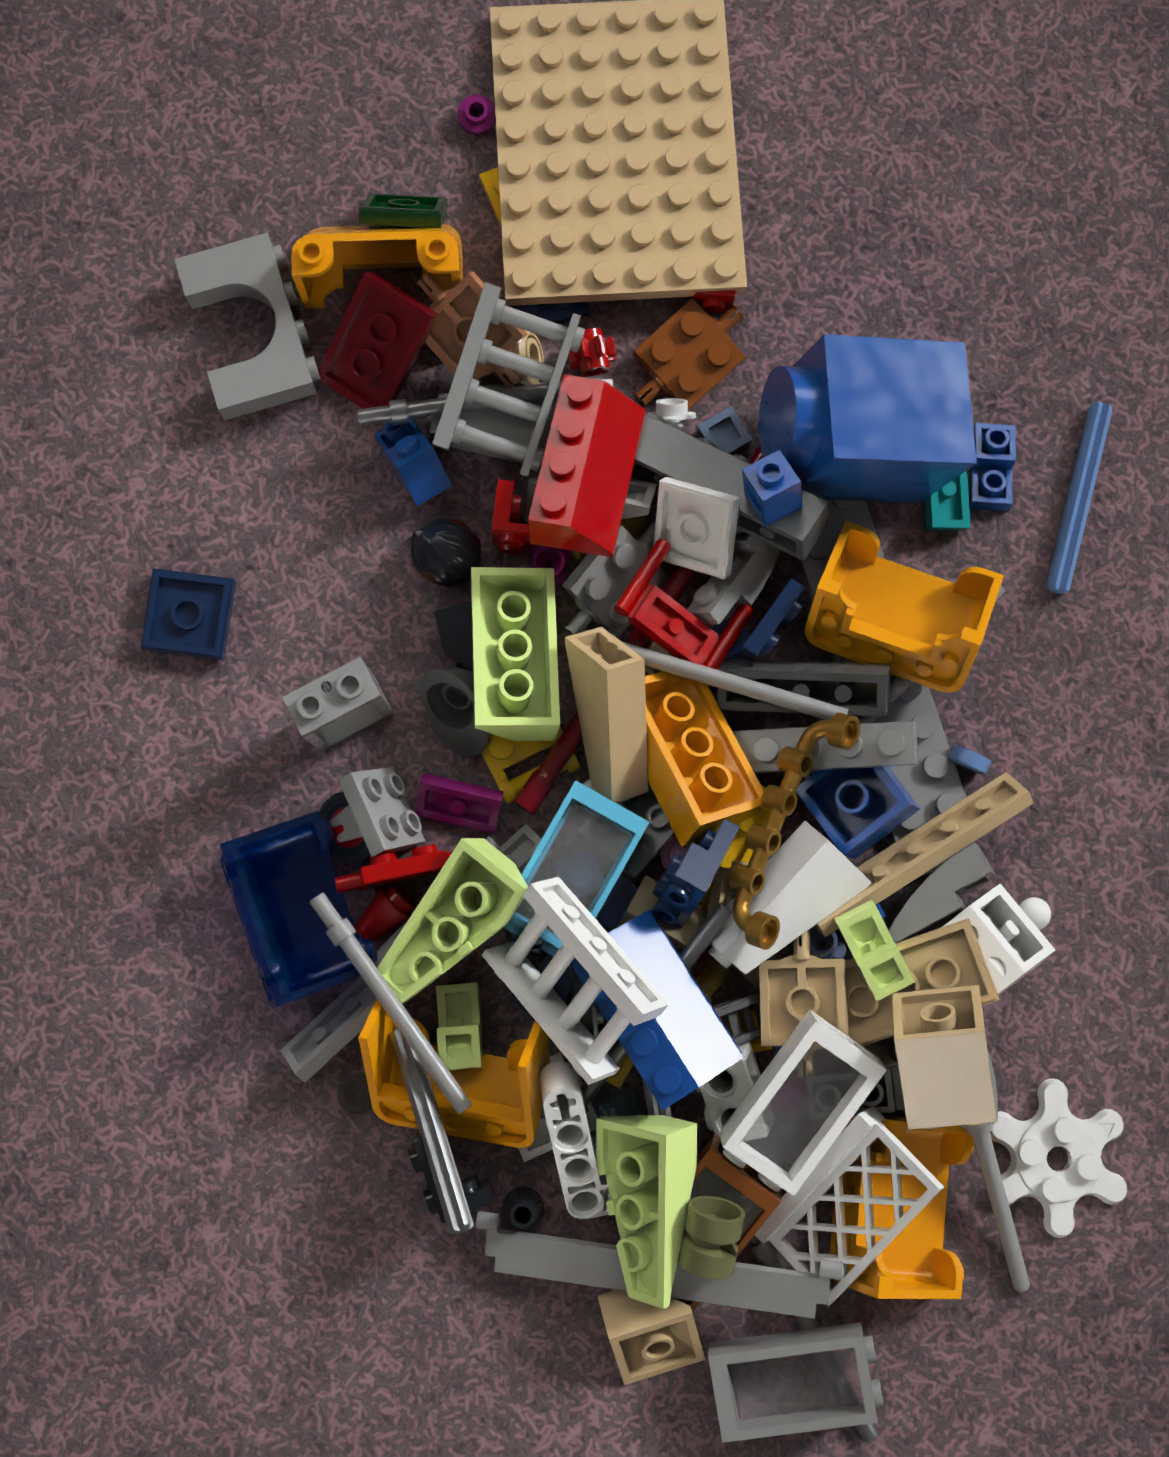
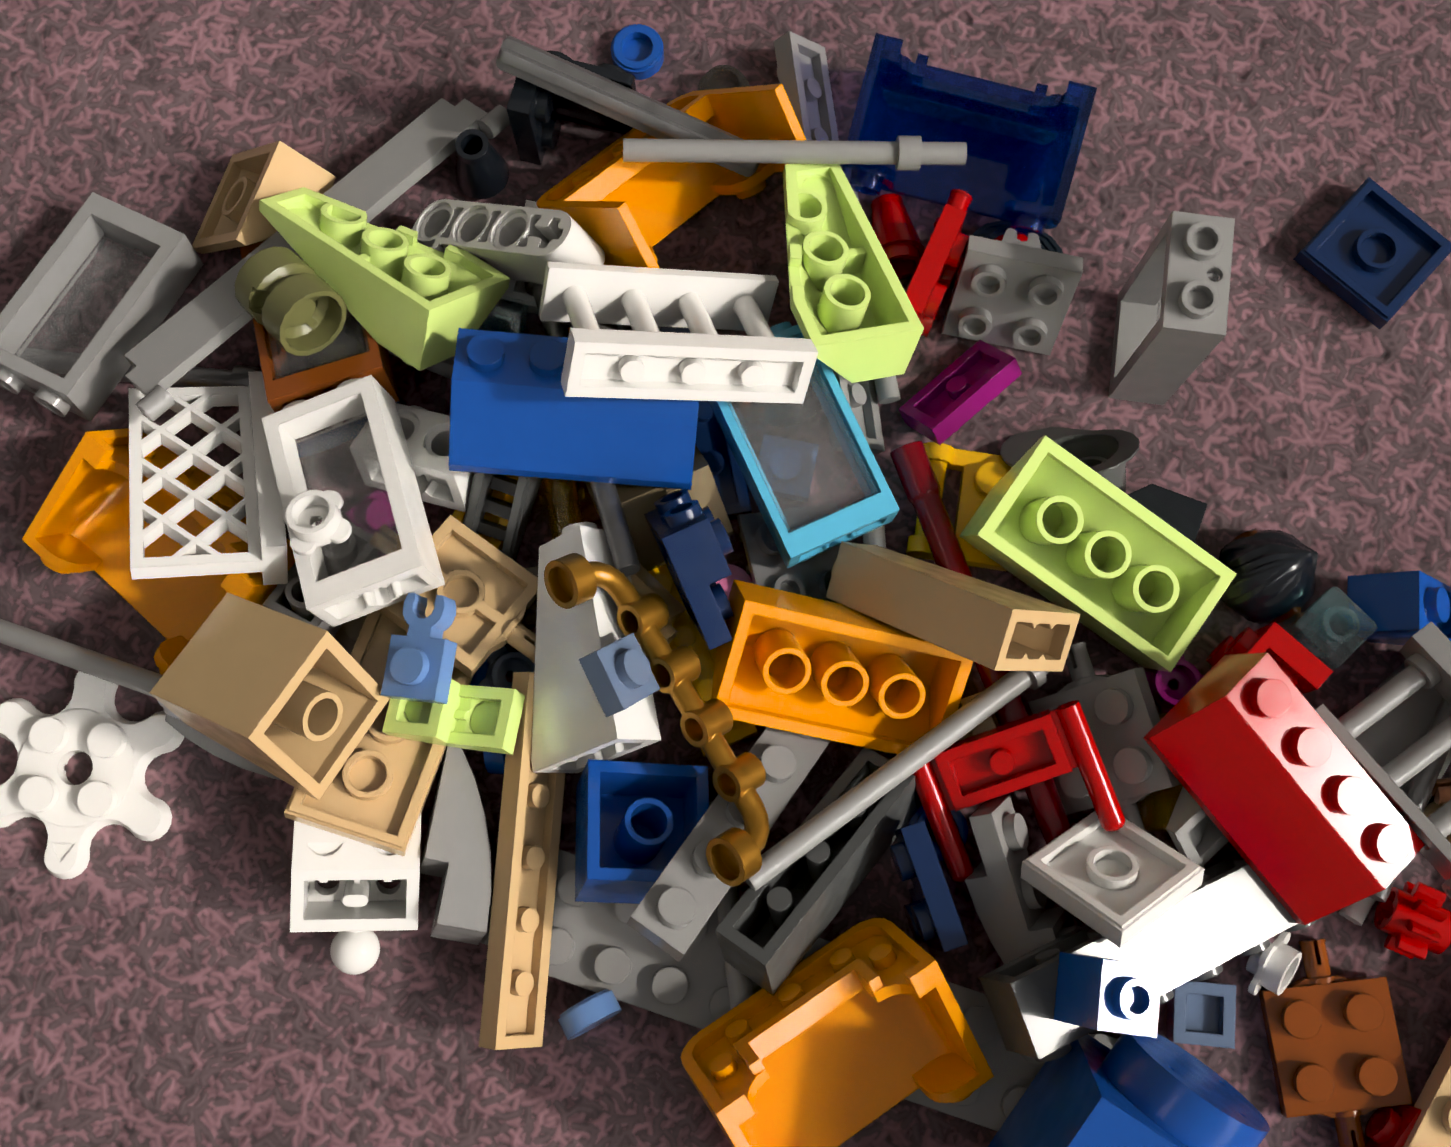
camera: 135 degrees right, 5 degrees down
(367, 1172) = (638, 51): none -> blue tile
(459, 1025) = (708, 228): yellowish green slope -> none
(462, 497) = (1331, 627): none -> clear light blue bracket
(792, 865) = (619, 674): none -> sand blue plate
(838, 1116) = (309, 508): none -> white plate
(862, 988) = (422, 662): none -> medium blue plate

